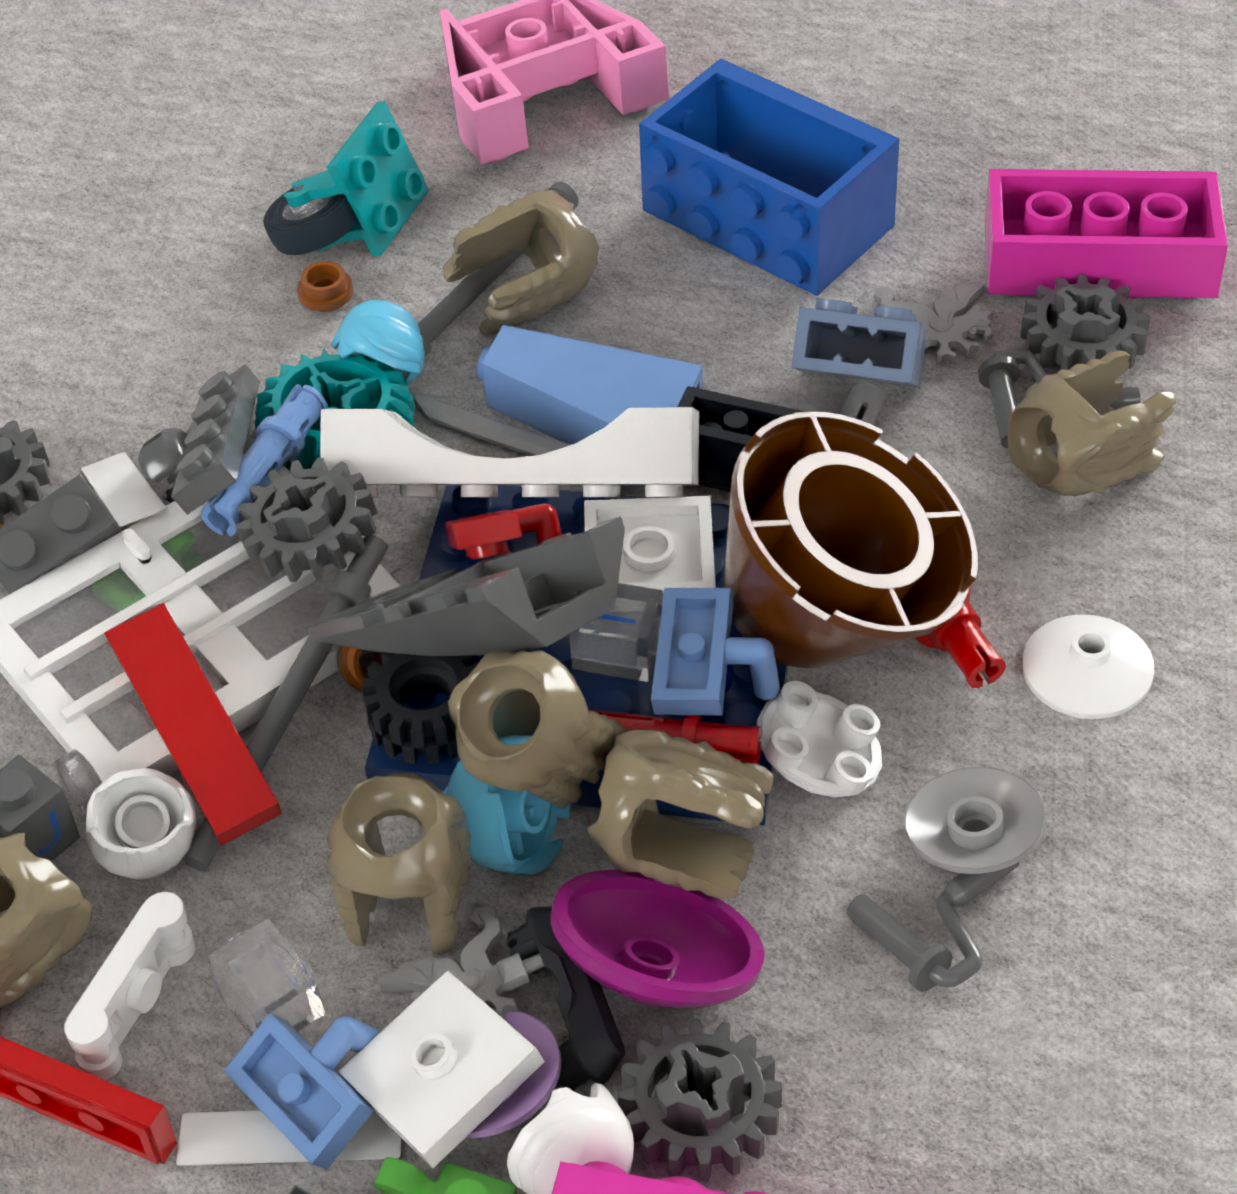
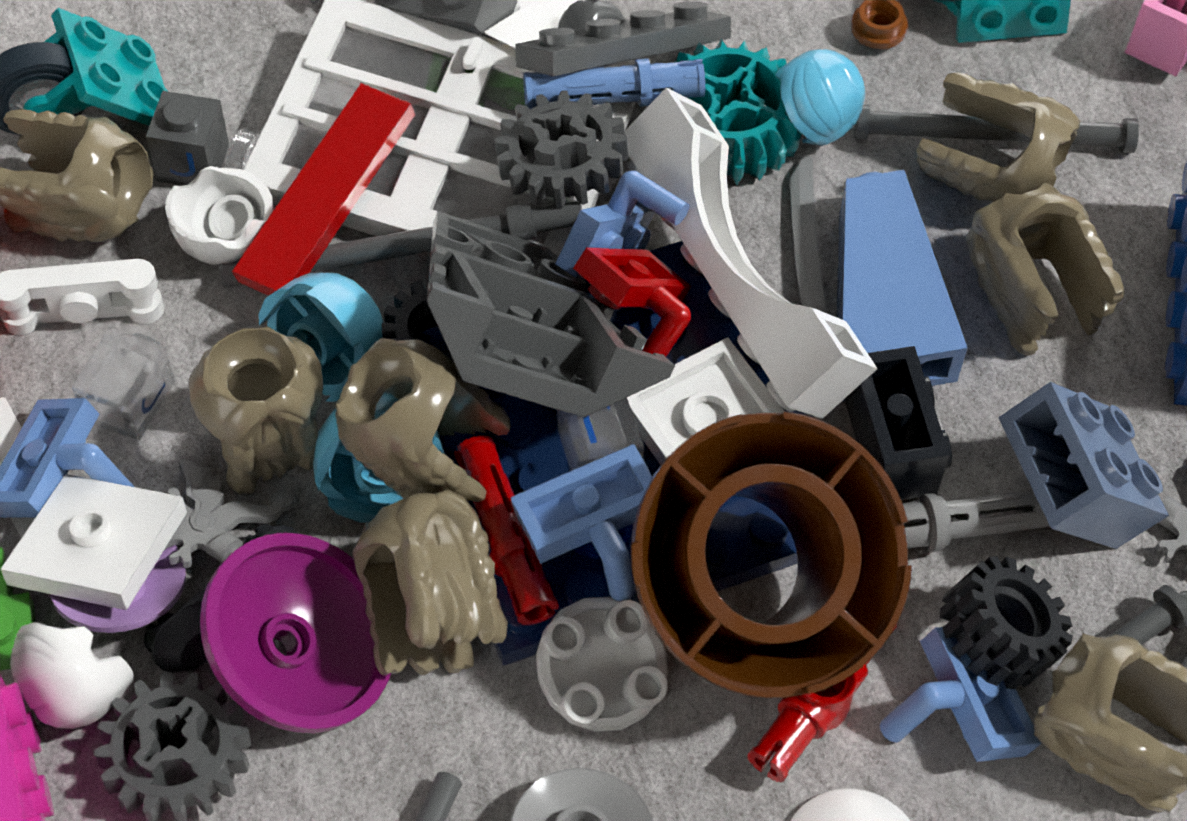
camera: 55 degrees right, 10 degrees up
(324, 774) = (330, 317): none -> medium azure cylinder
(414, 536) = (623, 220): none -> medium blue plate
(659, 290) = (1035, 227): none -> dark tan piece
(969, 459) = (1006, 622): none -> black tyre
(1001, 514) = (988, 714): none -> medium blue plate

